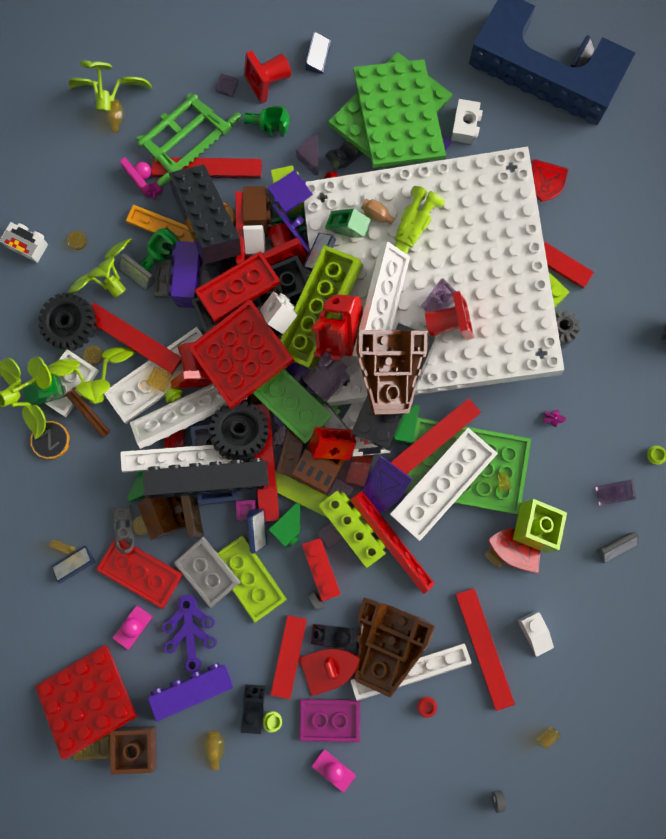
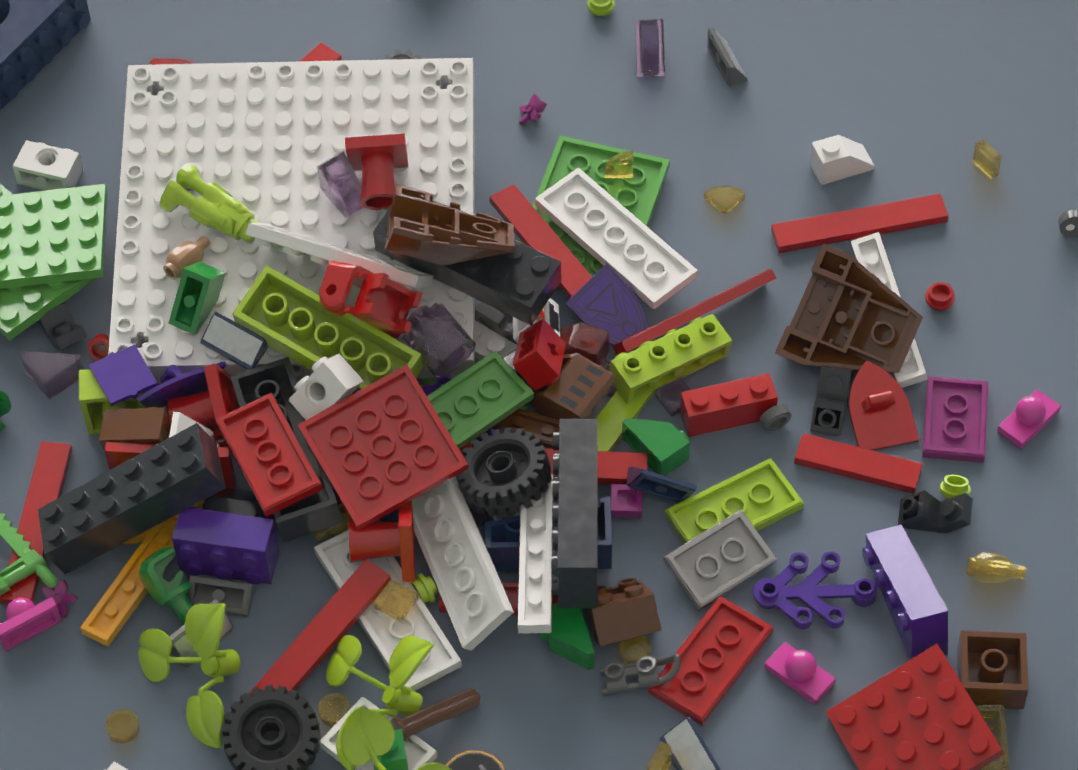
camera: 85 degrees left, 25 degrees down
(192, 517) = (633, 551): dark brown tile -> none
(514, 552) = (719, 165): shield -> none
(540, 526) = (689, 132): lime brick -> none

